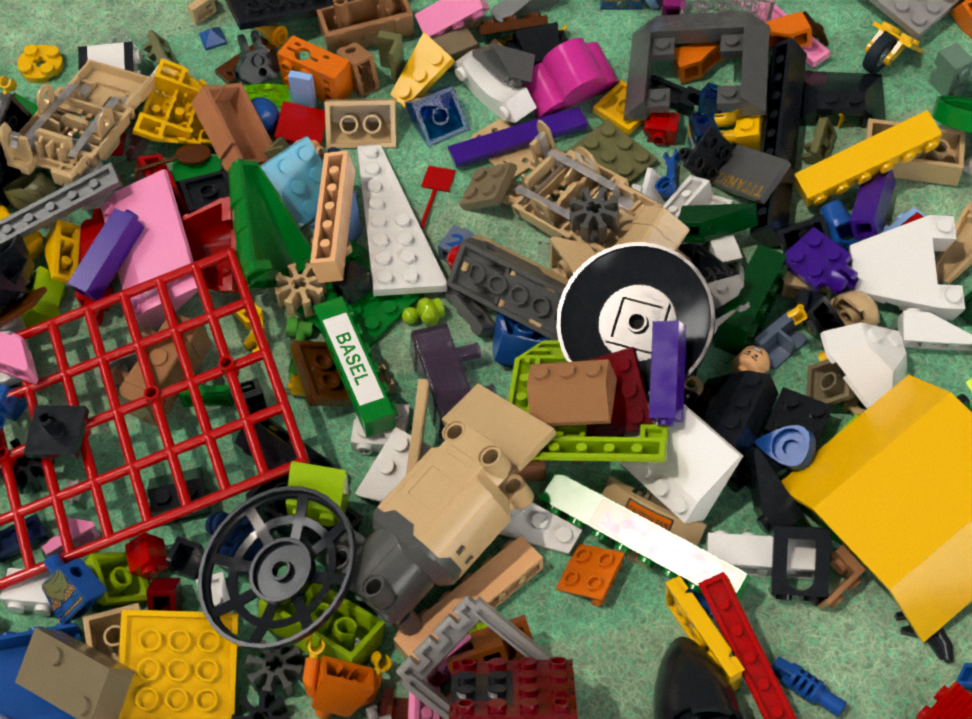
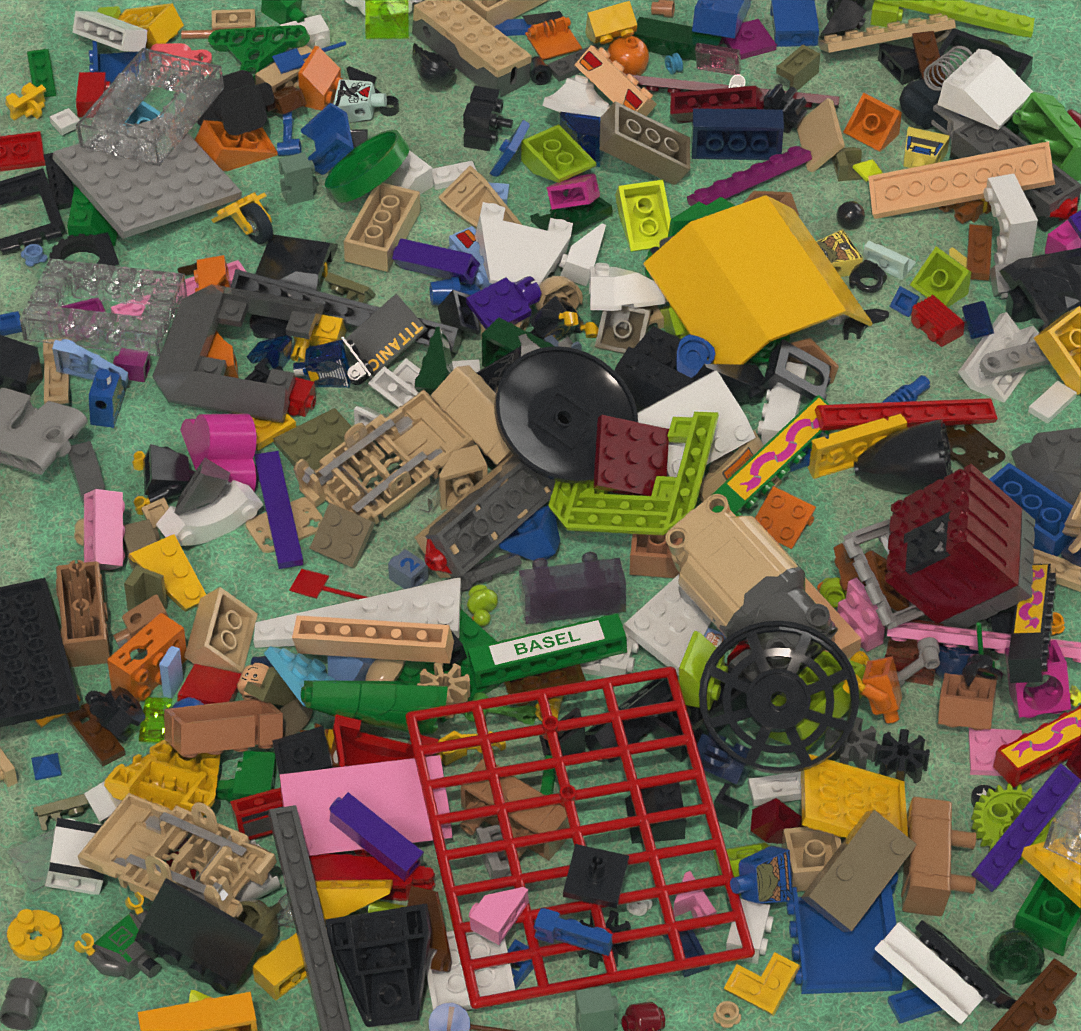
camera: 85 degrees left, 10 degrees down
(146, 556) = (733, 833): red brick -> none
(187, 154) = (238, 774): reddish brown piece -> none
(418, 424) = (642, 599): tan tile -> none
(437, 114) = (228, 568): clear blue slope -> none
(503, 423) = (643, 537): tan tile -> none
(511, 23) = (133, 481): reddish brown plate -> none
(572, 392) = (637, 468): medium nougat slope -> none
(594, 214) = (428, 435): dark grey gear -> none
(667, 185) = (371, 402): blue brick -> none
(667, 372) = (630, 398): dark purple brick -> none
(867, 158) = (398, 245): yellow brick -> none

